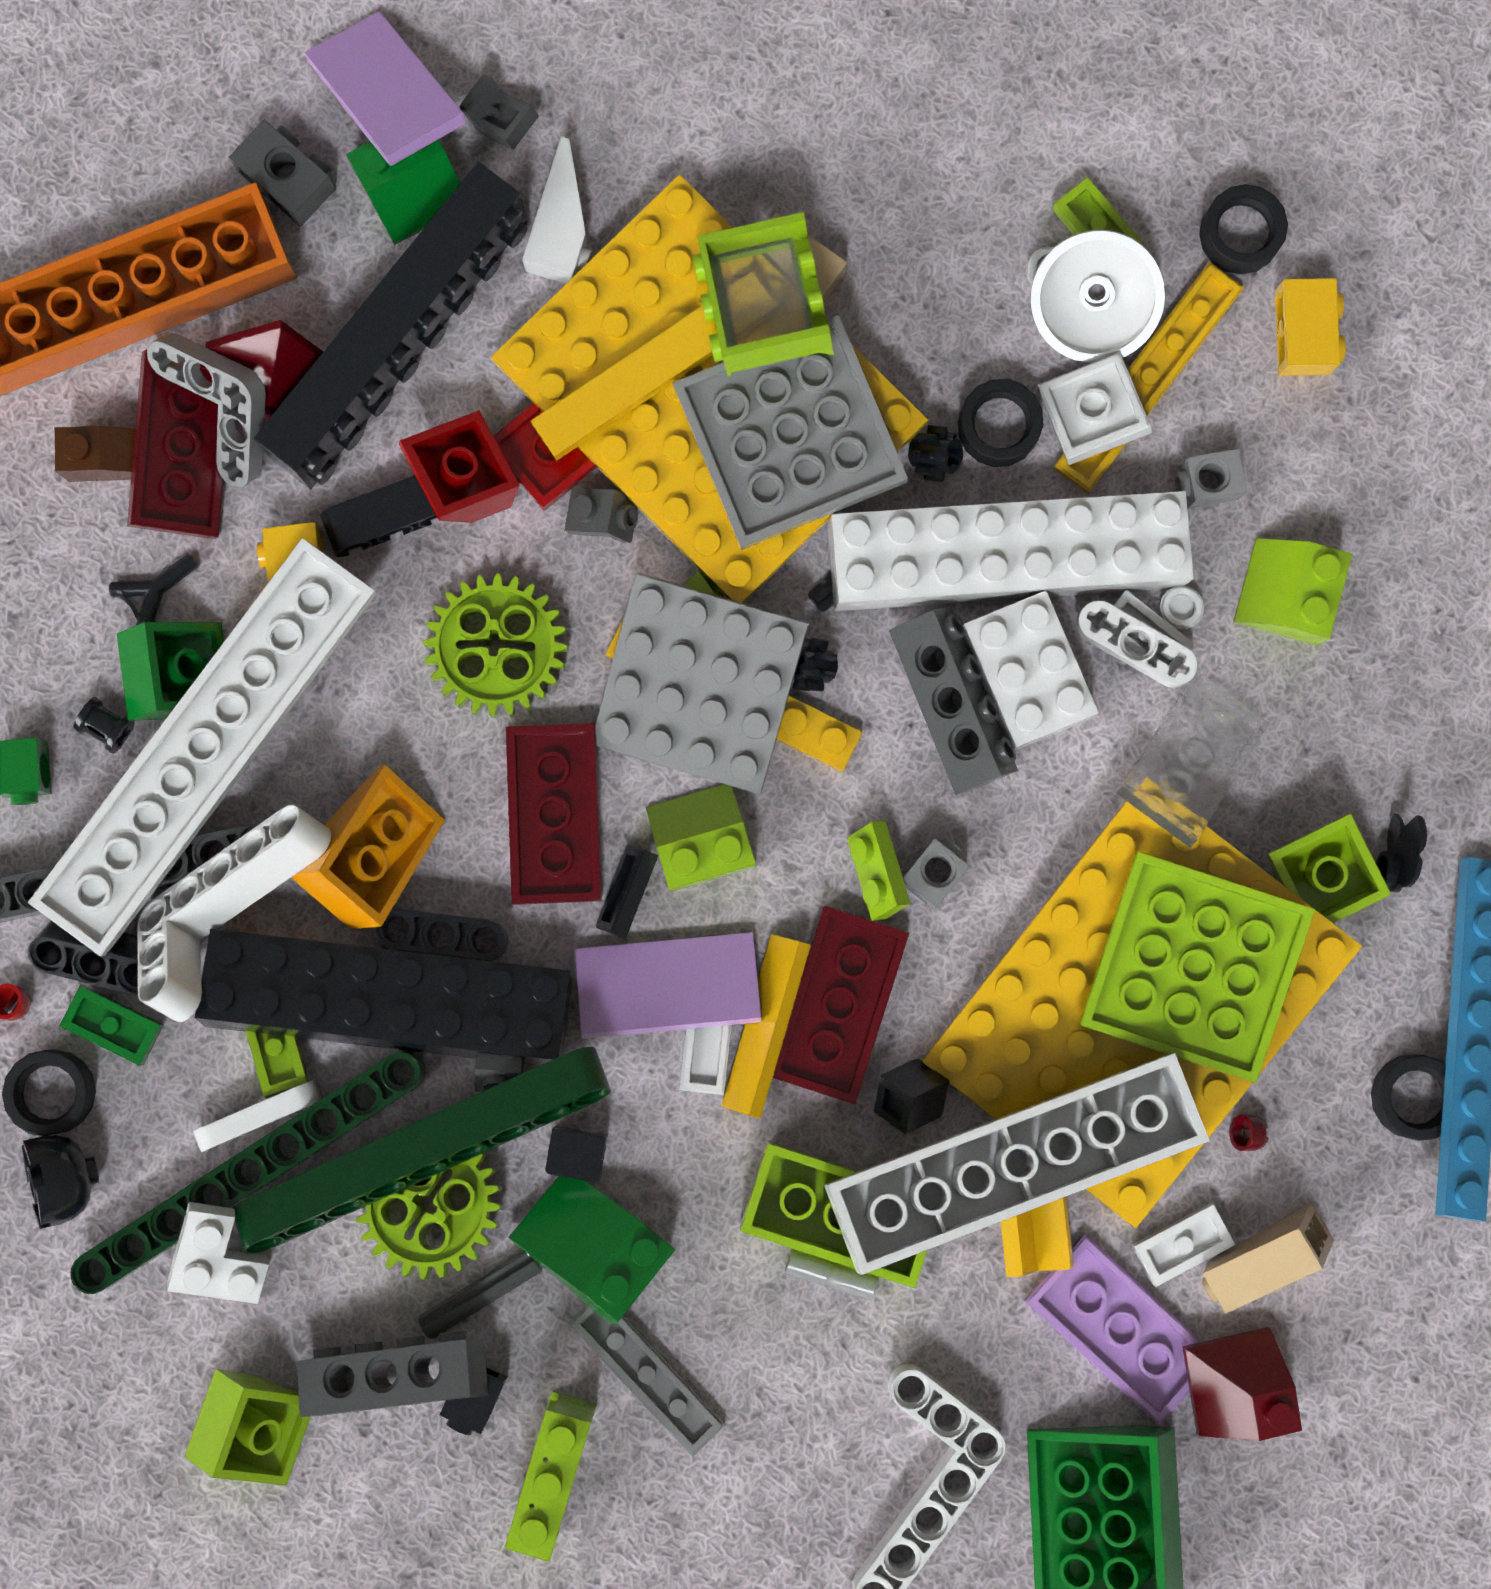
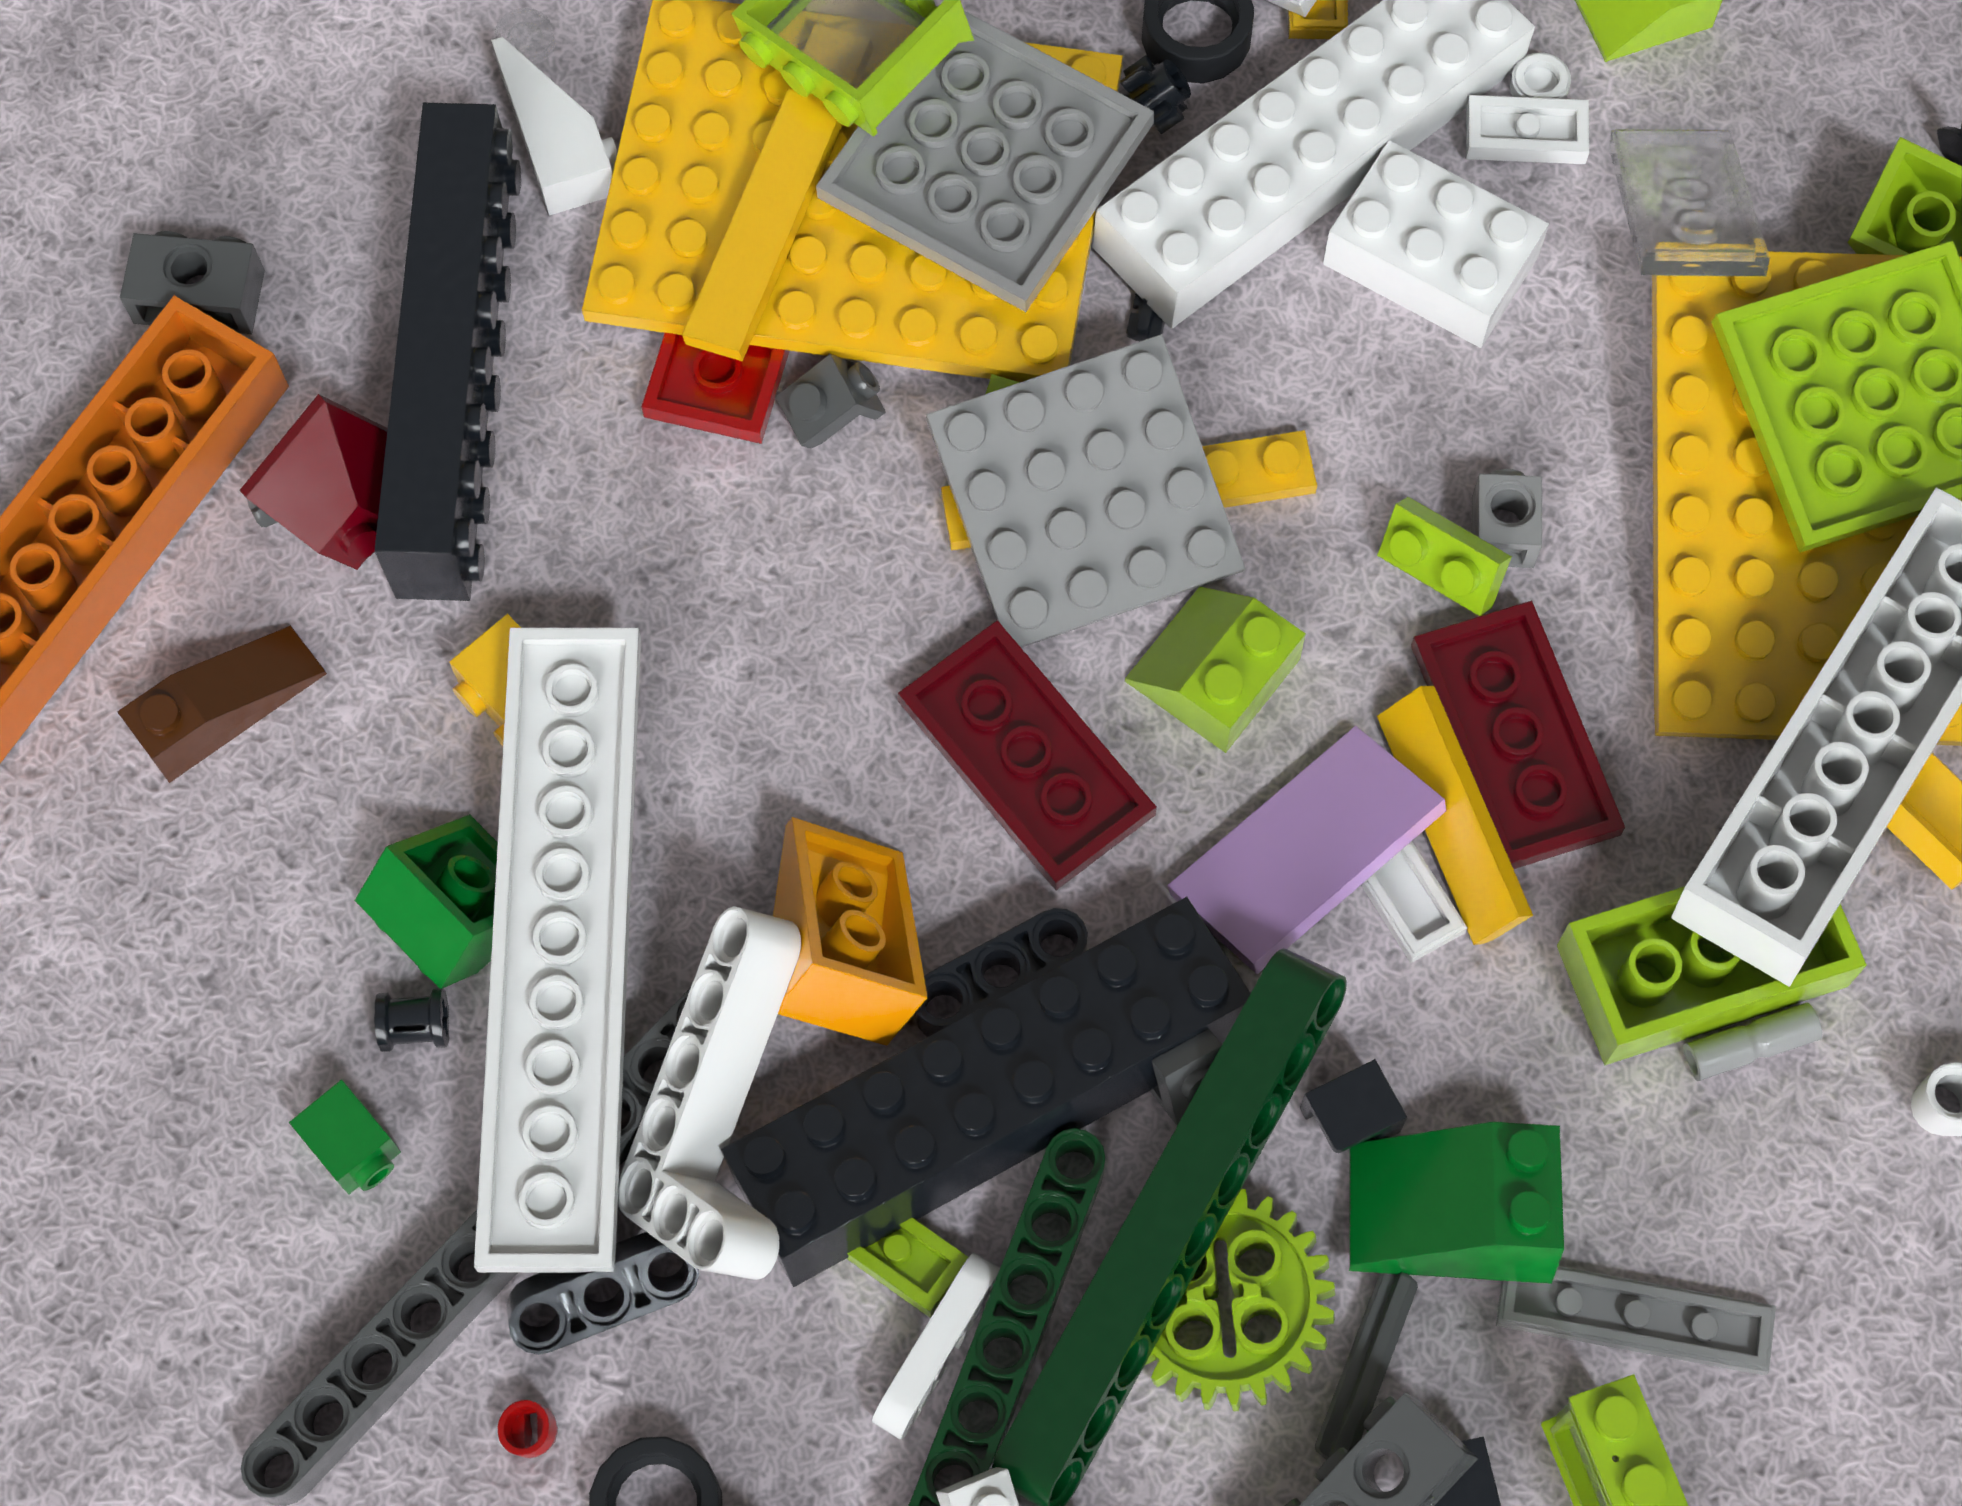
camera: 30 degrees left, 15 degrees down
(111, 1025) = (675, 1367): green plate -> none
(152, 589) = (359, 832): black piece -> none
(174, 459) = (281, 645): dark red tile -> none
(179, 361) = (304, 530): light grey beam -> none
(376, 516) = (582, 555): black beam -> none
(385, 88) = (253, 115): lavender tile -> none
(408, 191) = (341, 197): green slope -> none
(461, 469) = (642, 439): red slope -> none
(497, 113) = (401, 72): dark grey bracket -> none
(498, 605) = (850, 657): lime gear -> none
(626, 891) = (1178, 778): black tile -> none
(815, 666) = (1203, 390): black gear -> none
(911, 1096) = (1678, 776): black panel -> none
(933, 687) = (1290, 291): dark grey brick -> none
(1159, 669) = (1544, 117): white beam -> none

